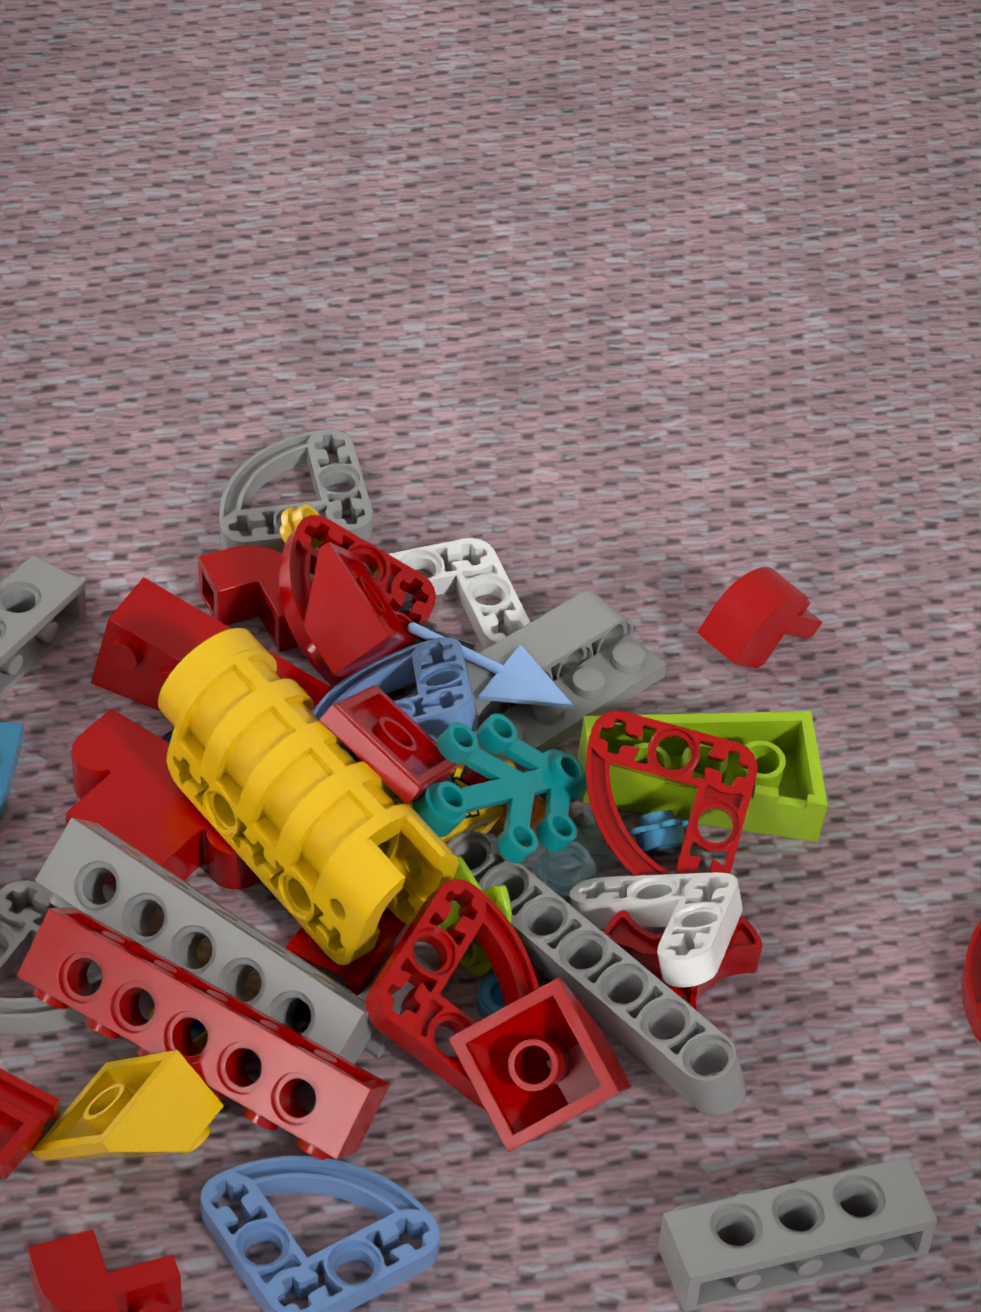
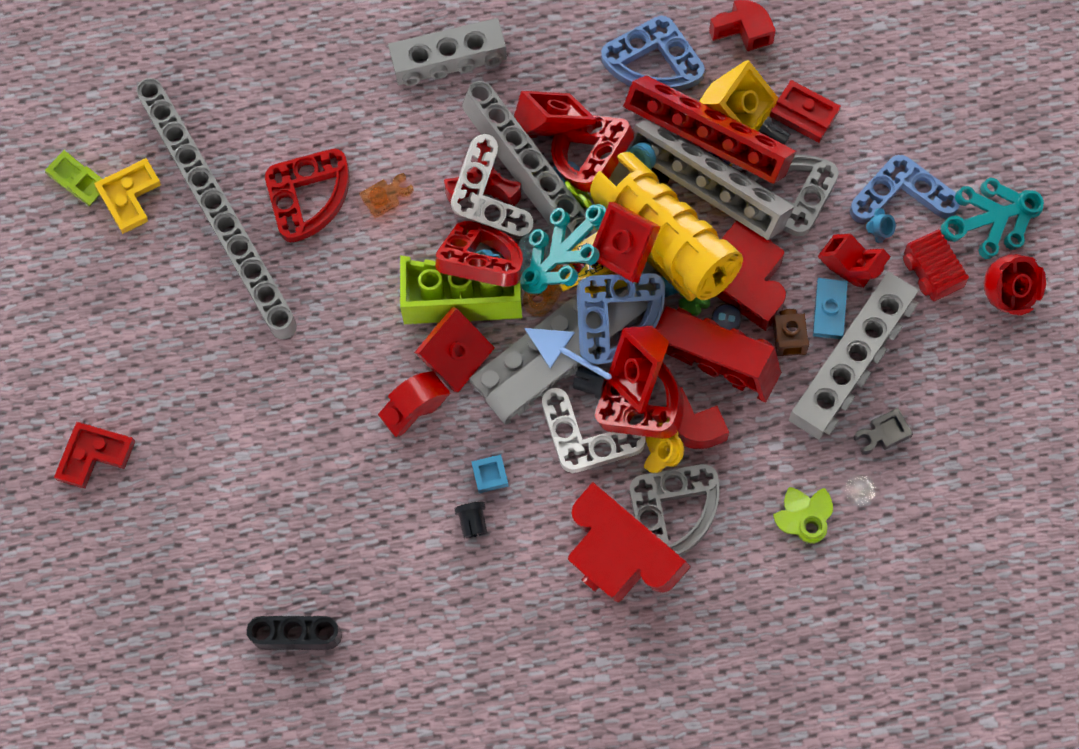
camera: 170 degrees left, 25 degrees up
(61, 1058) = (774, 131): none -> black bush
(64, 710) = (788, 342): none -> reddish brown brick
(75, 489) = (802, 511): none -> lime plate
(347, 976) = (644, 153): none -> dark azure tile
(386, 426) = (620, 548): none -> red brick
(613, 538) = (490, 473): none -> dark azure plate
(637, 484) = (472, 519): none -> black bush
(704, 679) = (454, 349): none -> red plate
(884, 959) = (383, 197): none -> clear orange plate
(895, 358) = (282, 624): none -> black beam

